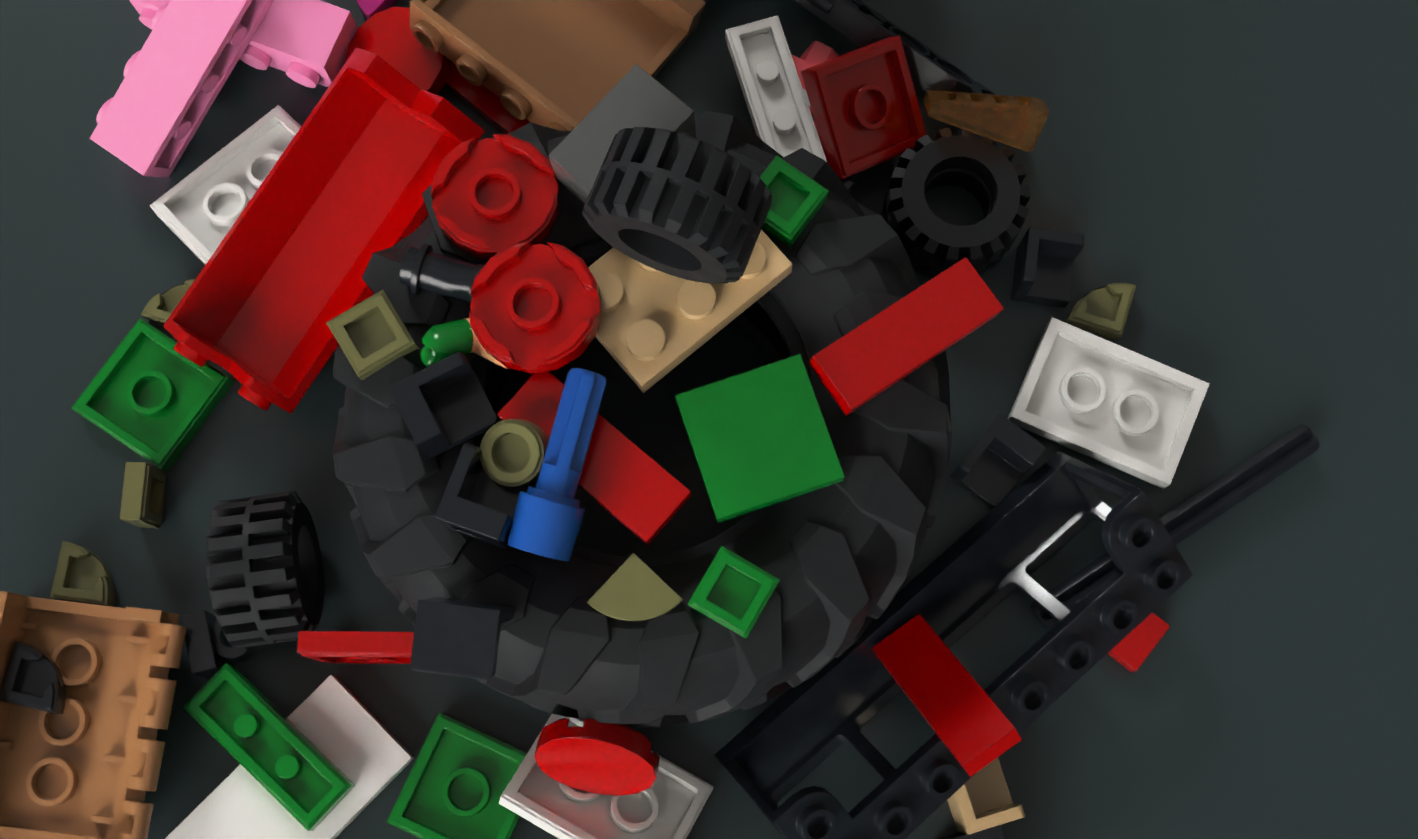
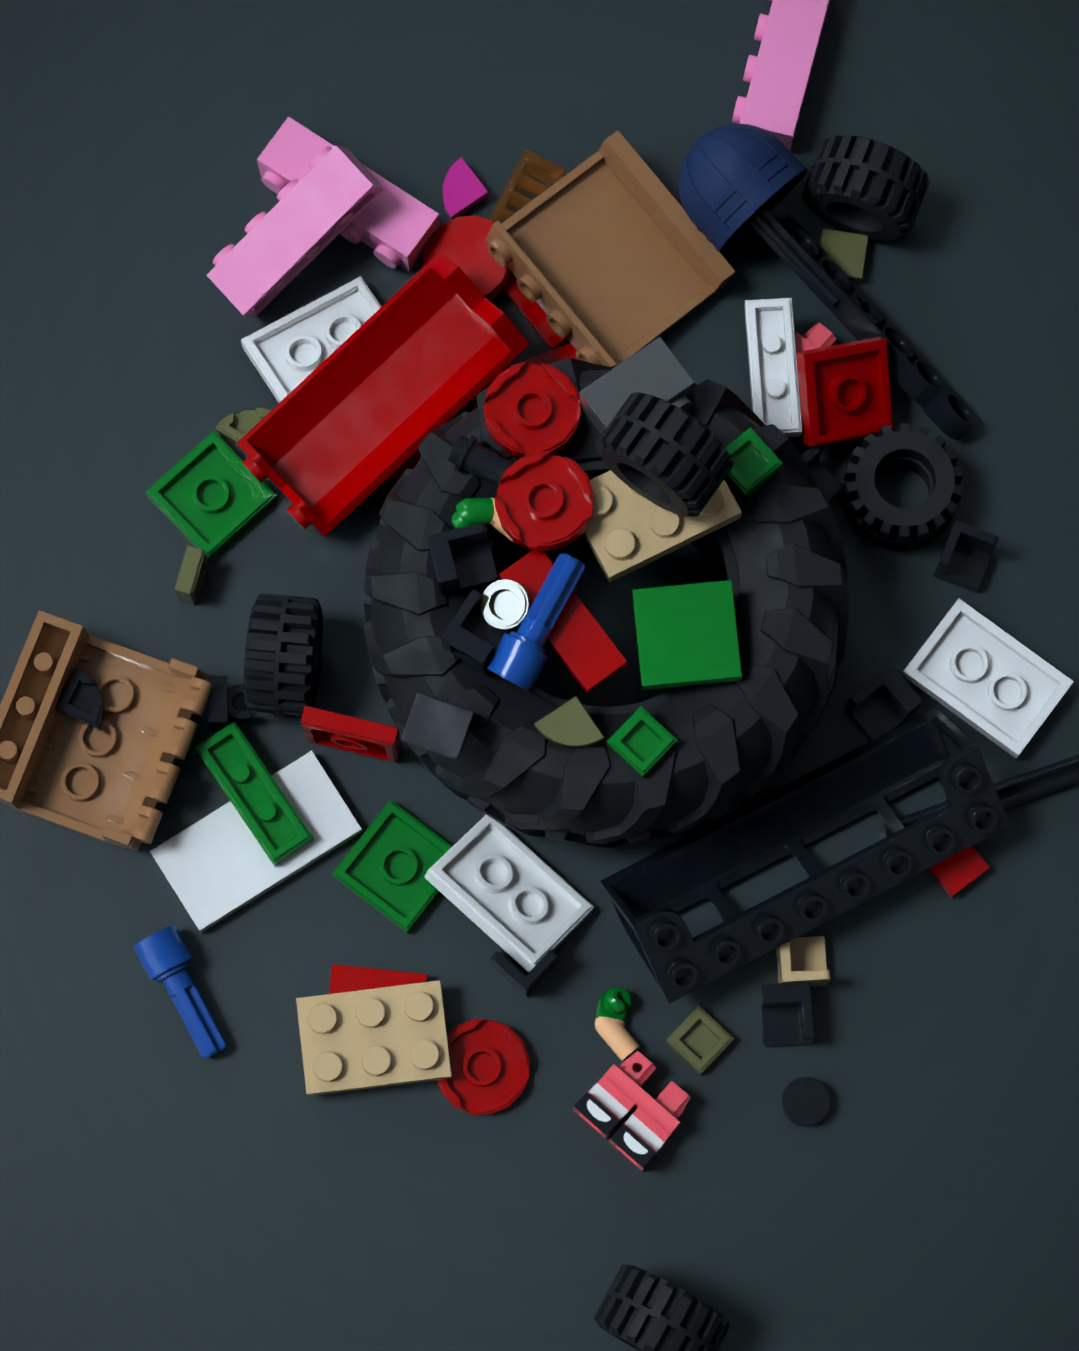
camera: 15 degrees right, 0 degrees up
(82, 577) = (128, 628): olive tile -> none
(372, 334) = (418, 494): olive tile -> none
(597, 757) = (510, 854): red tile -> none
(905, 336) = (814, 584): red tile -> none
(946, 695) = (788, 867): red tile -> none
(1002, 118) = (949, 423): clear orange slope -> none
(1103, 310) = (1005, 602): olive tile -> none

